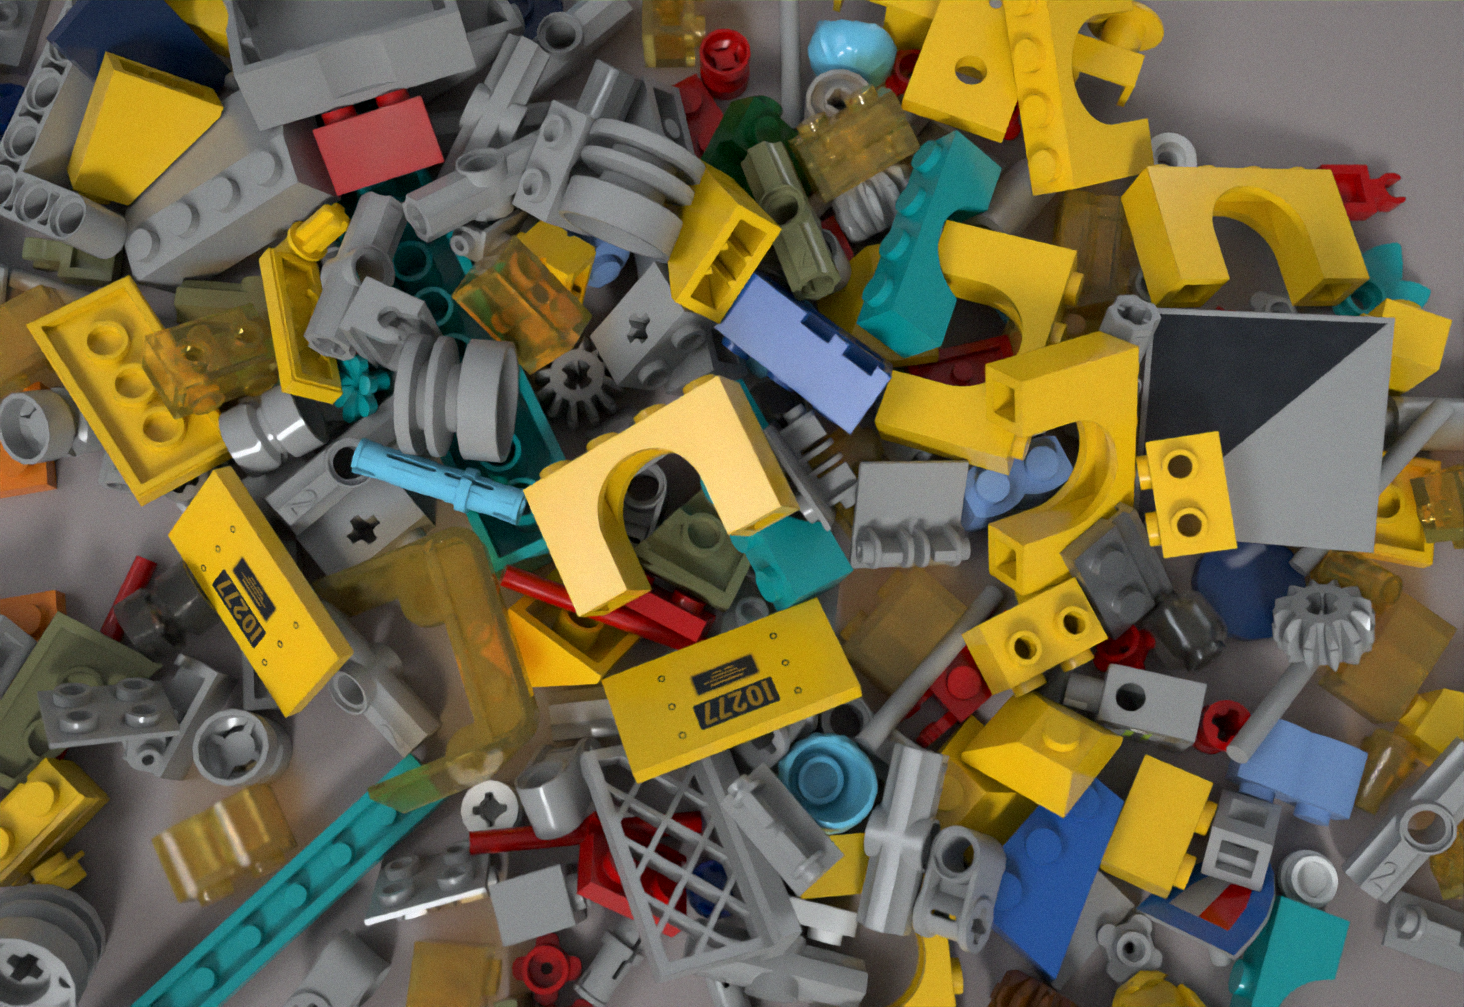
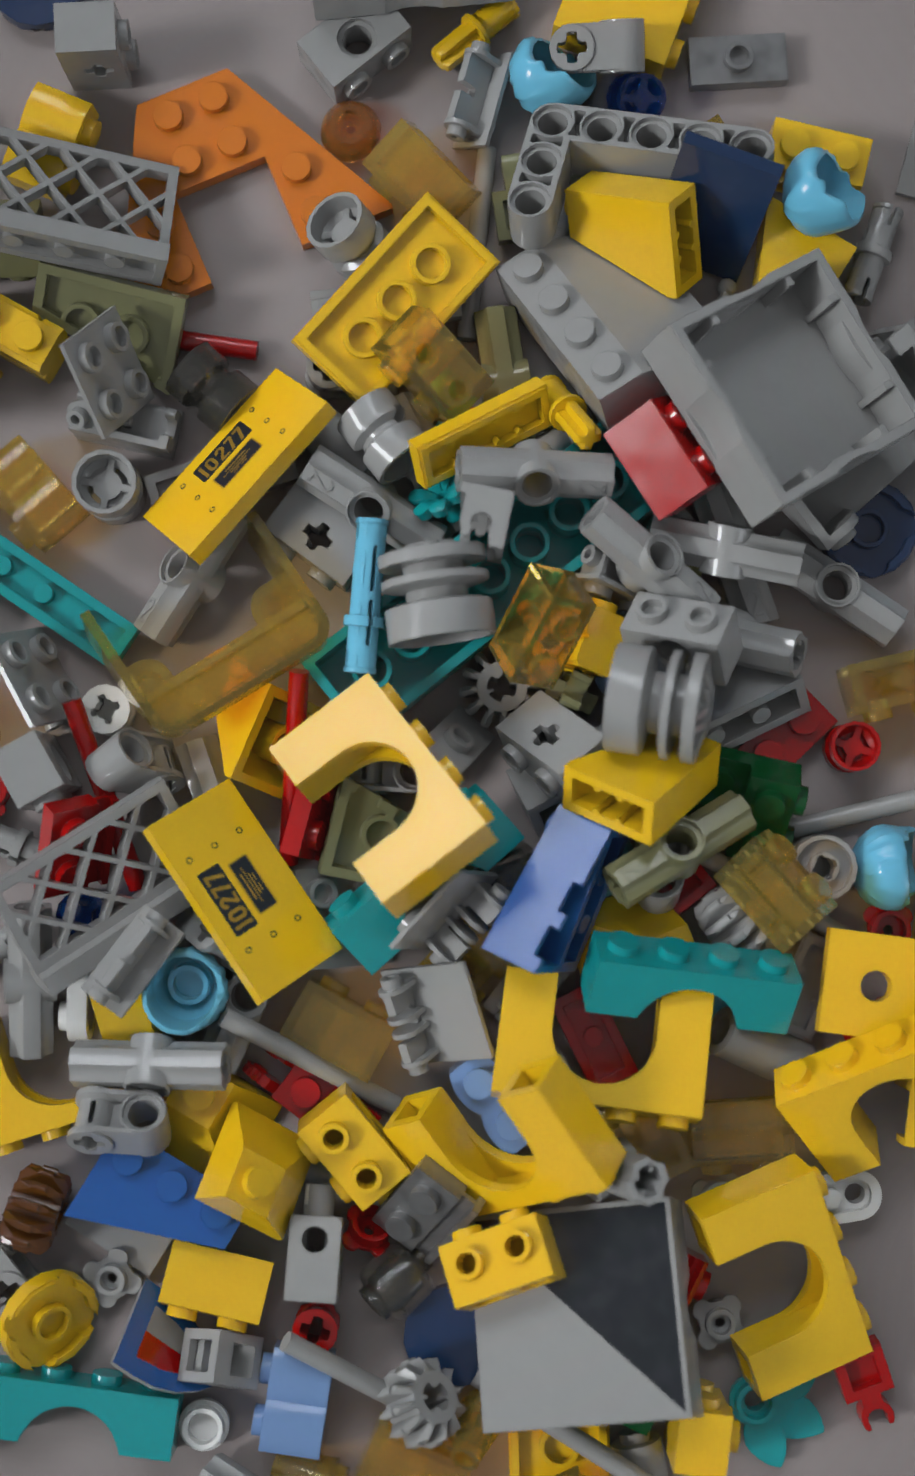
camera: 75 degrees right, 10 degrees up
(598, 301) = (573, 692): none -> olive plate

